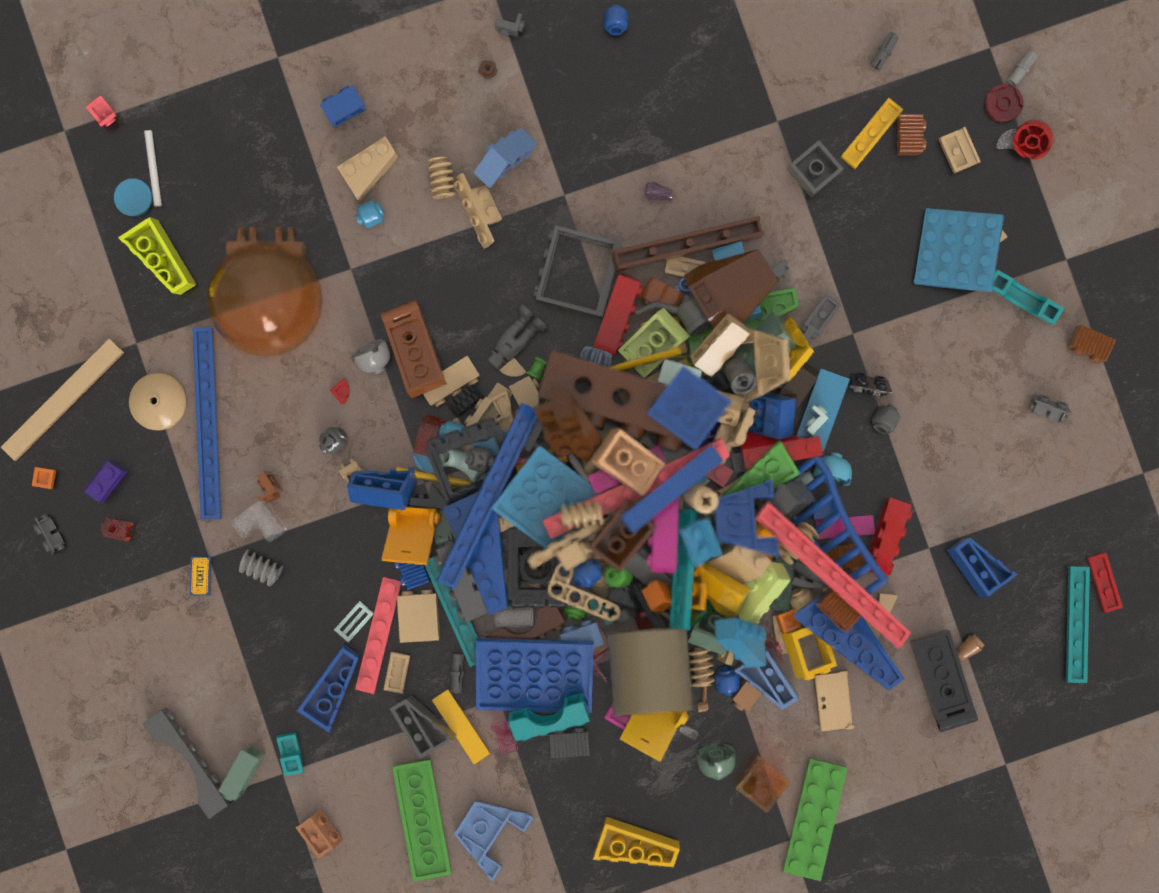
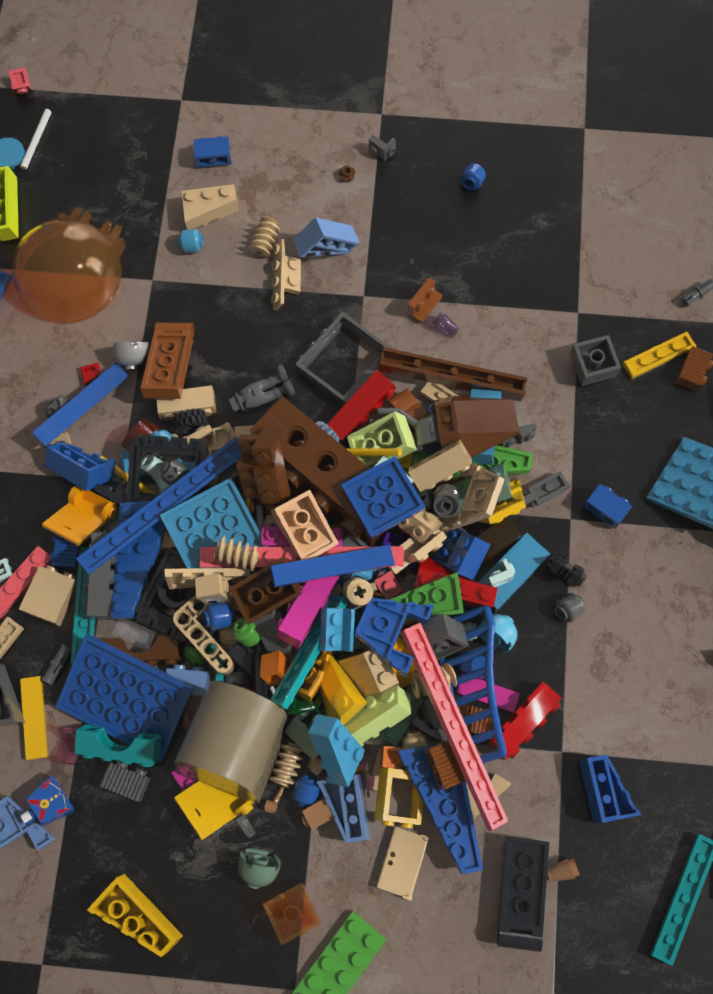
camera: 25 degrees right, 15 degrees down
(353, 429) = (79, 405): none -> blue tile
(513, 369) = (246, 417): tan tile -> none
(513, 792) = (47, 804): none -> blue torso
(628, 178) = (424, 301): none -> dark orange bracket
(882, 308) = (607, 506): none -> blue brick

